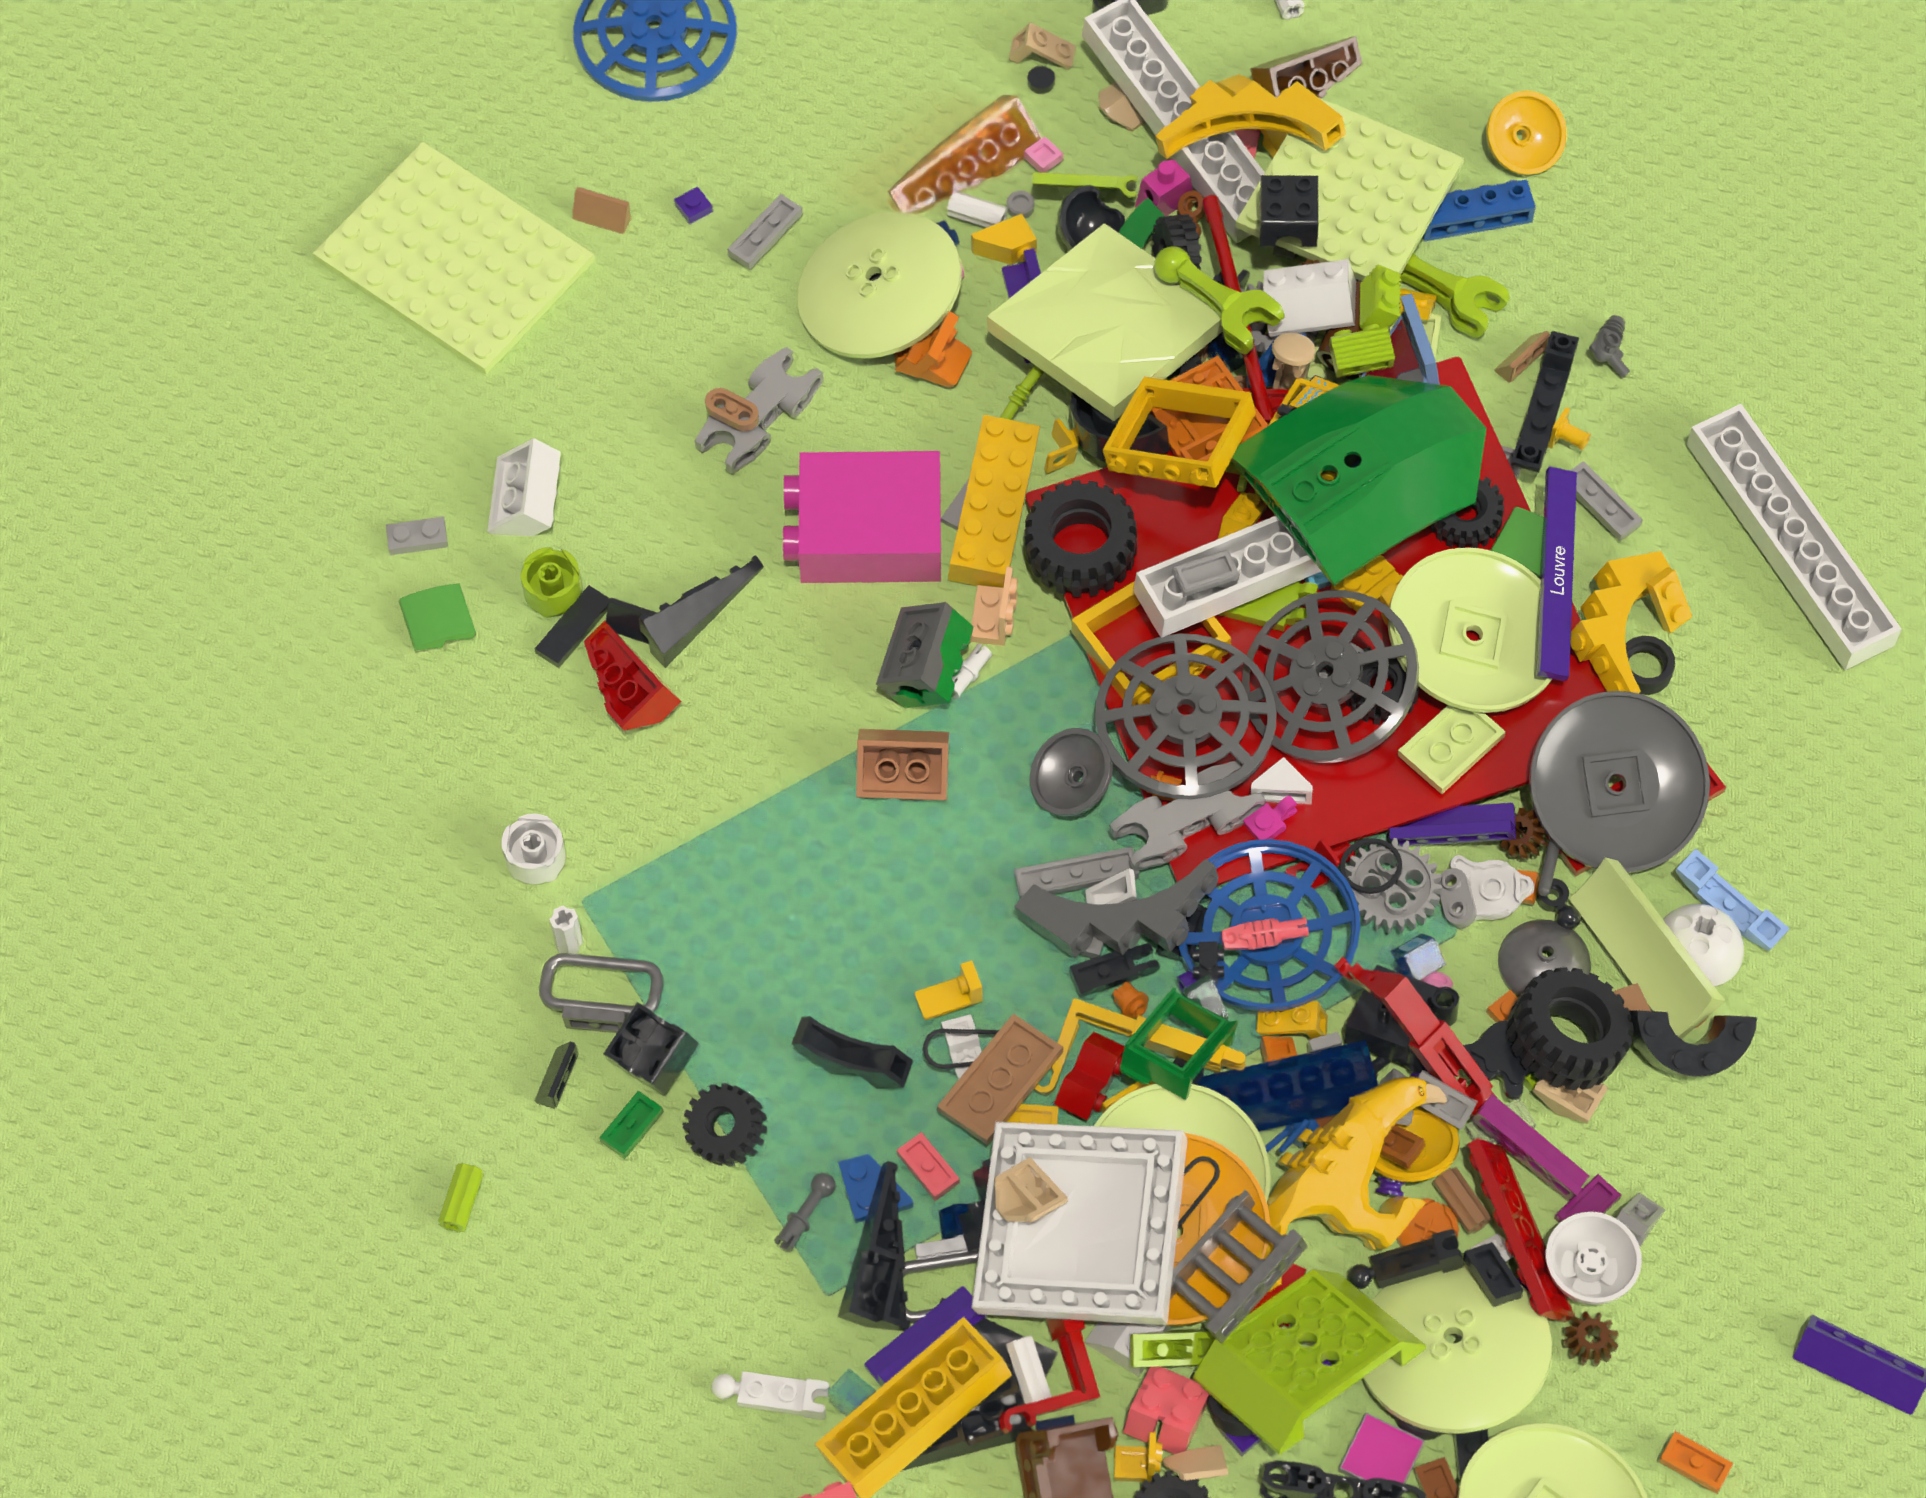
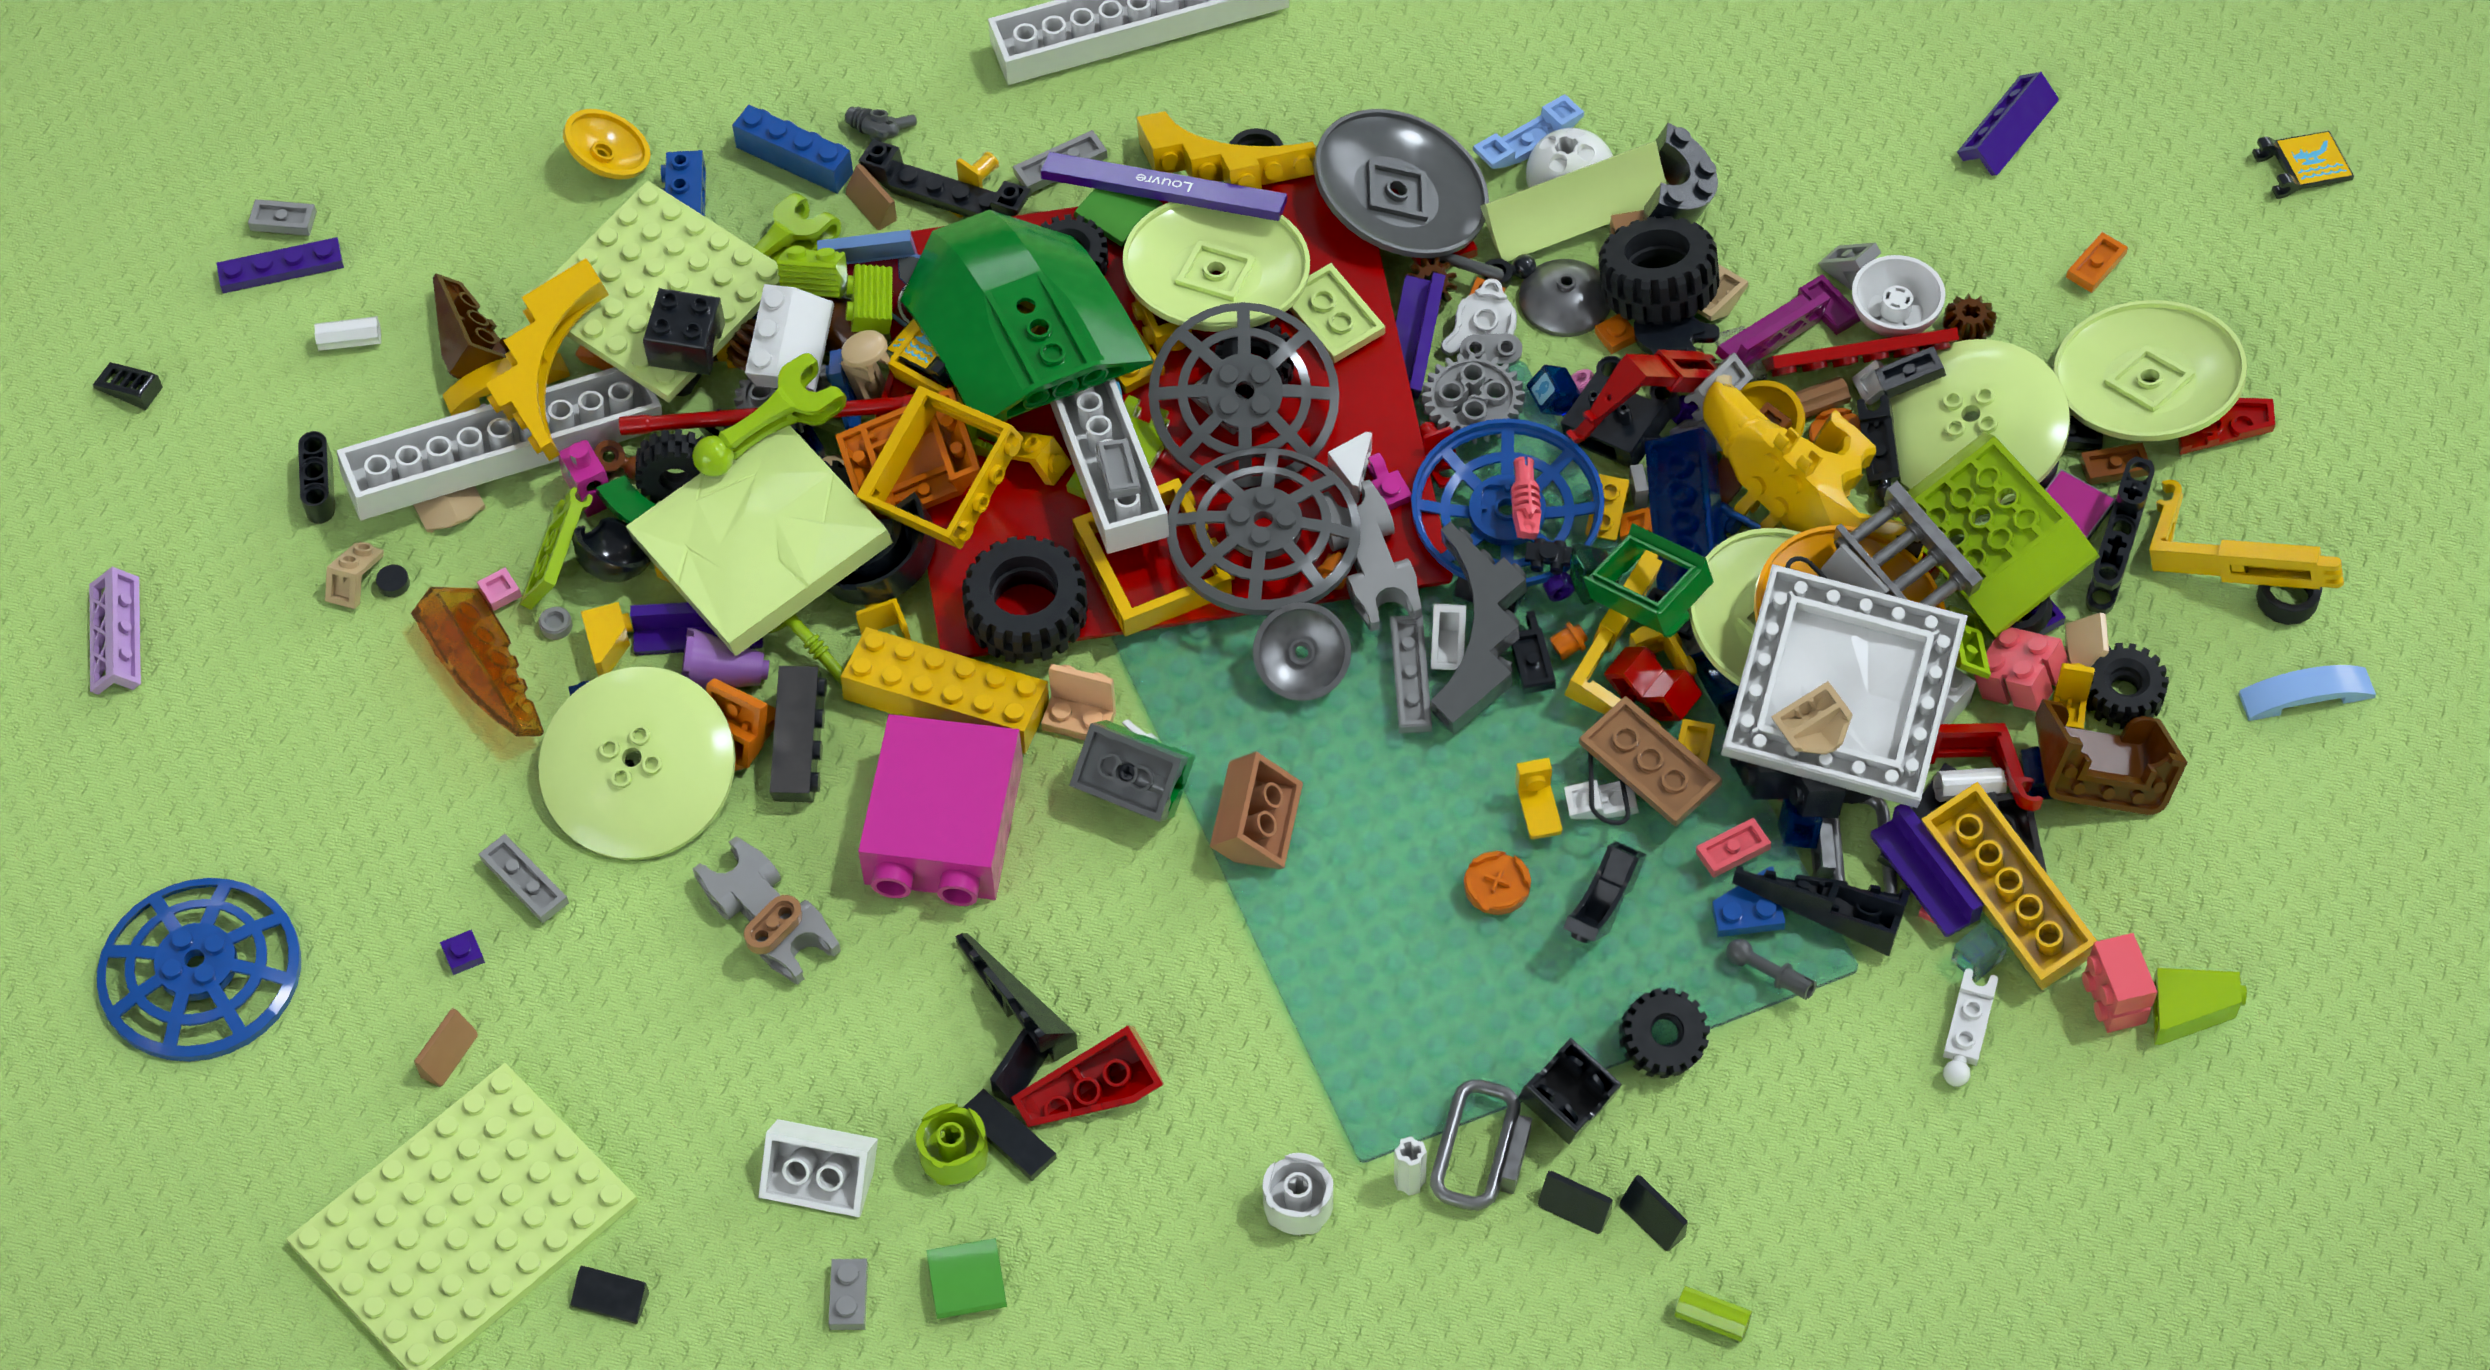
camera: 80 degrees left, 5 degrees down
(398, 369) = (609, 1294): none -> black slope
(554, 1141) = (1654, 1214): none -> black slope
(631, 1124) = (1645, 1132): green plate -> none
(865, 972) = (1497, 883): none -> orange tile
(930, 398) = (798, 734): none -> black wedge
(974, 310) = (710, 658): none -> medium lavender cone
(976, 210) = (555, 662): white axle -> none
(1201, 1220) = (1849, 569): none -> light grey slope
(1367, 842) = (1434, 387): black piece -> none
(1561, 280) = (793, 148): none -> blue brick
(1669, 599) = (1193, 120): yellow plate -> none

